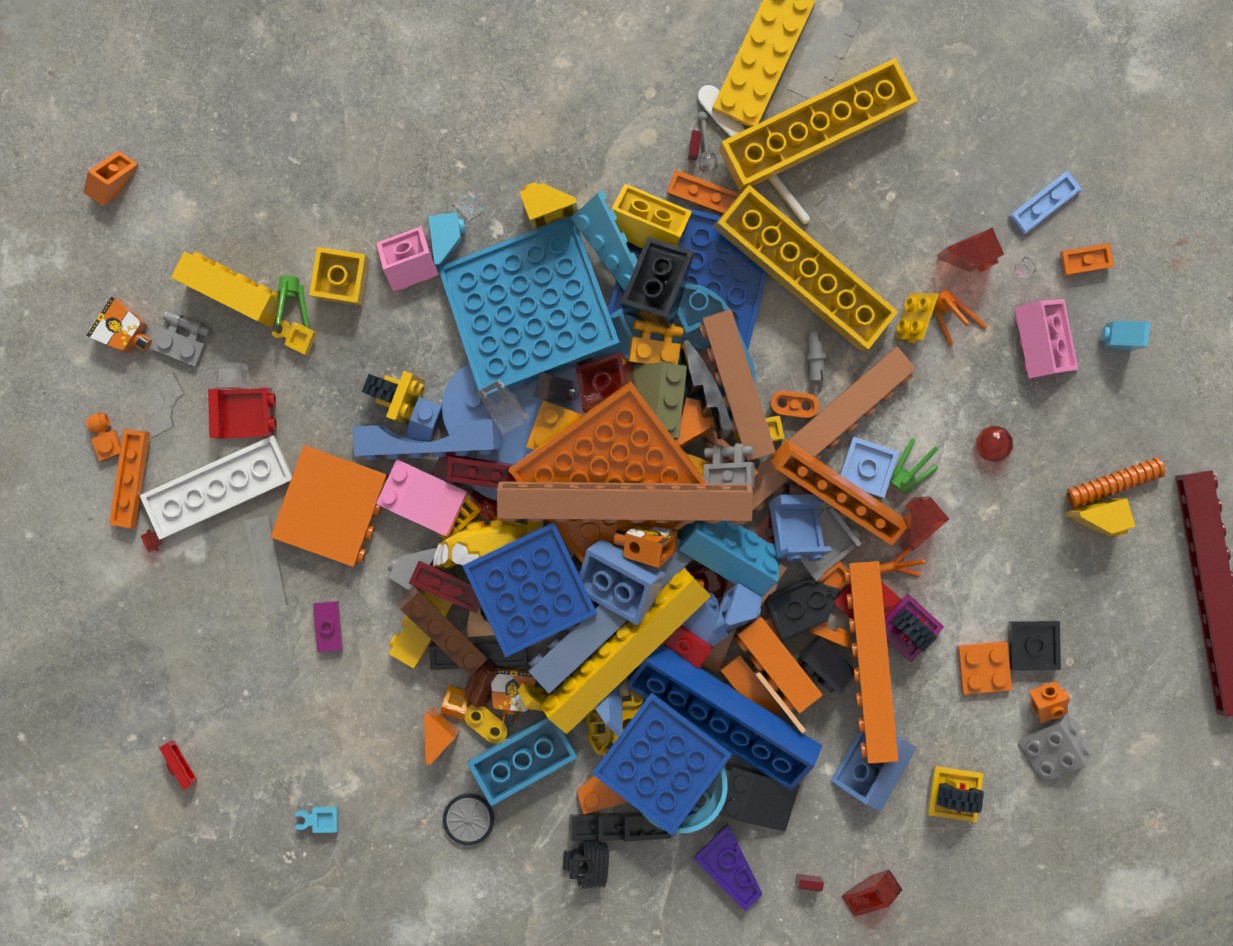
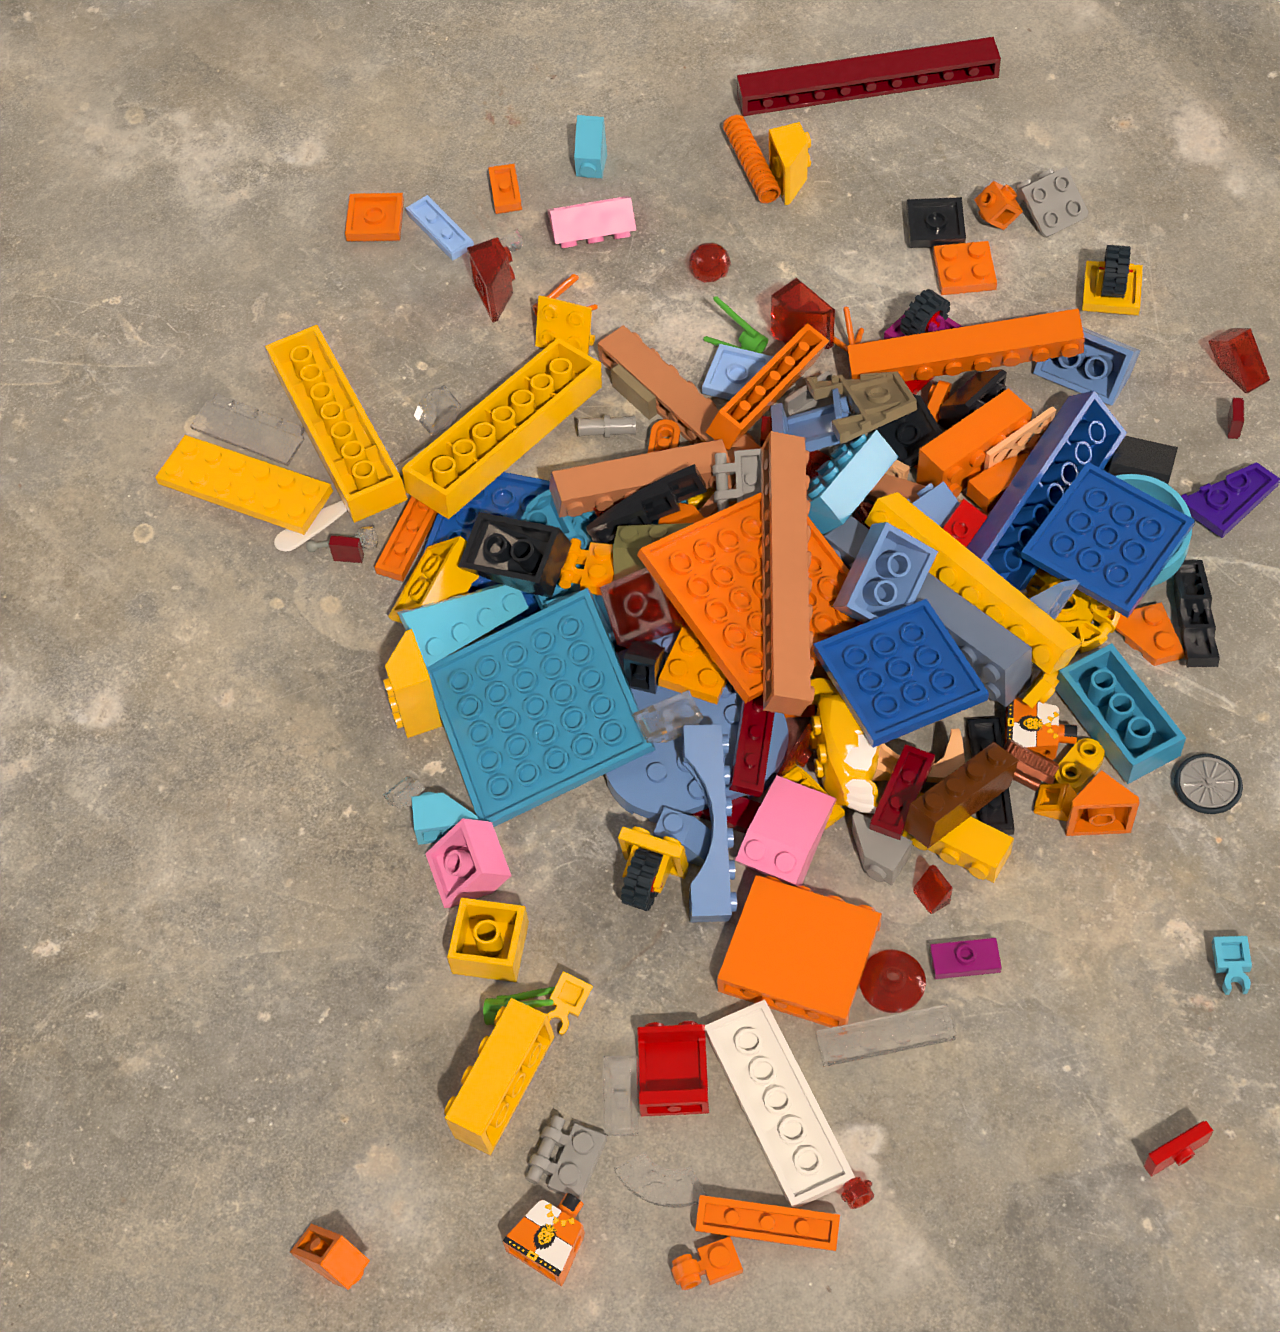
camera: 80 degrees left, 30 degrees down
(325, 576) = (888, 994): none -> clear red dish
(380, 605) = (933, 890): none -> clear red slope
(595, 864) = (1247, 635): black piece -> none
(647, 544) = (837, 548): orange torso -> none
(737, 609) = (911, 473): medium blue slope -> none
(816, 584) = (874, 397): none -> dark tan wing
(851, 378) = (634, 391): none -> dark tan tile
(1056, 143) = (374, 217): none -> orange plate

